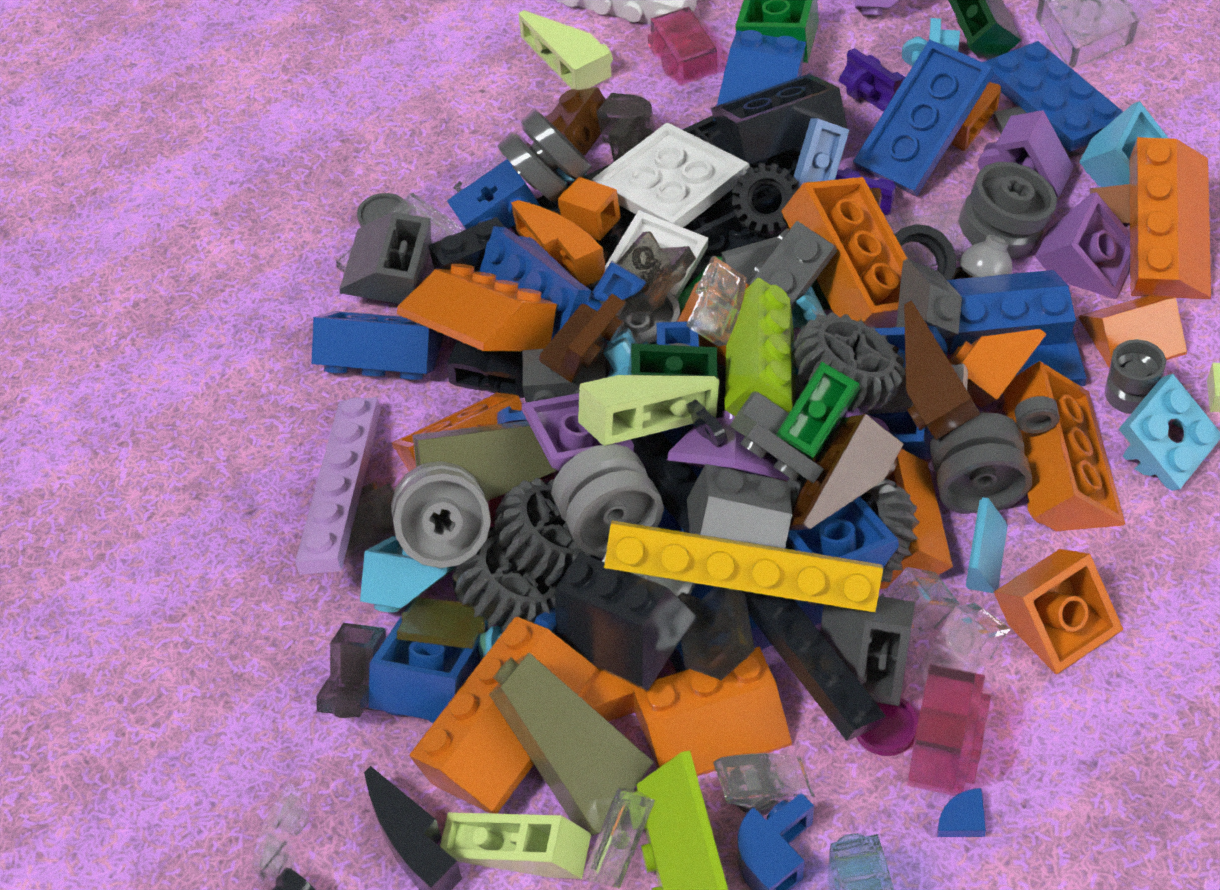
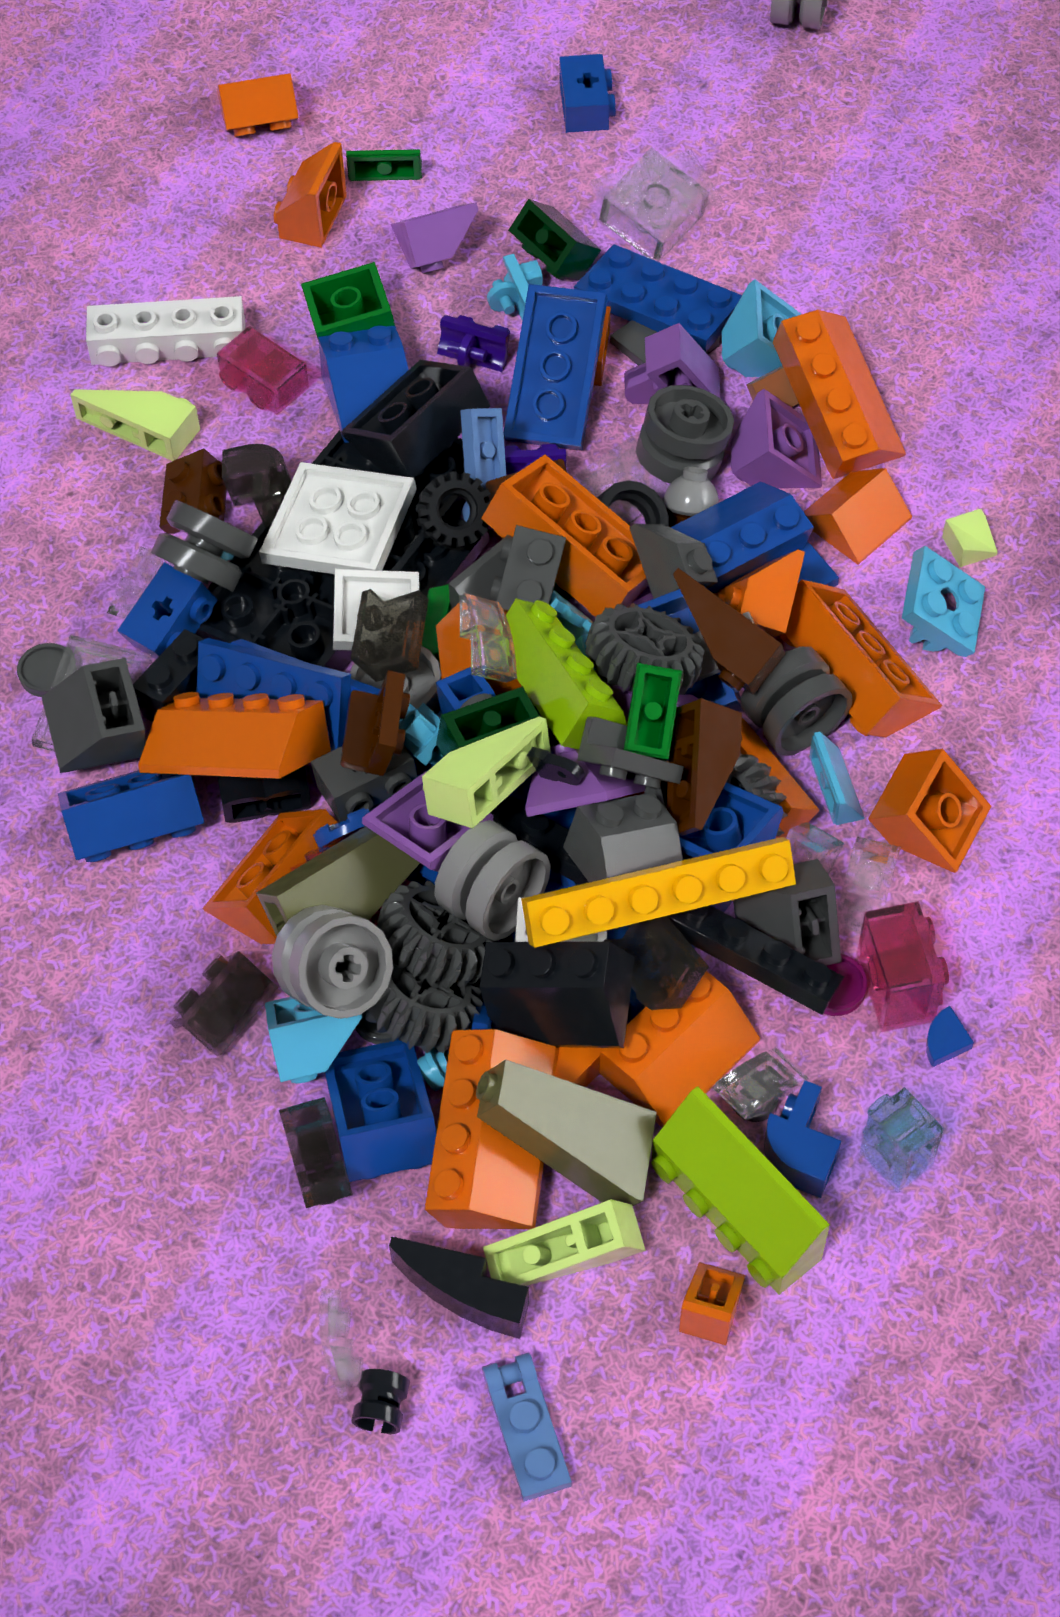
camera: 30 degrees left, 5 degrees up
(338, 487) = (189, 975): lavender plate -> none
(440, 623) = (374, 1068): clear yellow piece -> none
(562, 240) = (268, 627): orange slope -> none
(590, 206) = (274, 584): orange brick -> none
(617, 281) = (370, 656): blue tile -> none
(618, 837) = (667, 1196): clear slope -> none
(1037, 414) = (830, 634): dark grey tile -> none
(1133, 373) = (885, 559): dark grey wheel -> none

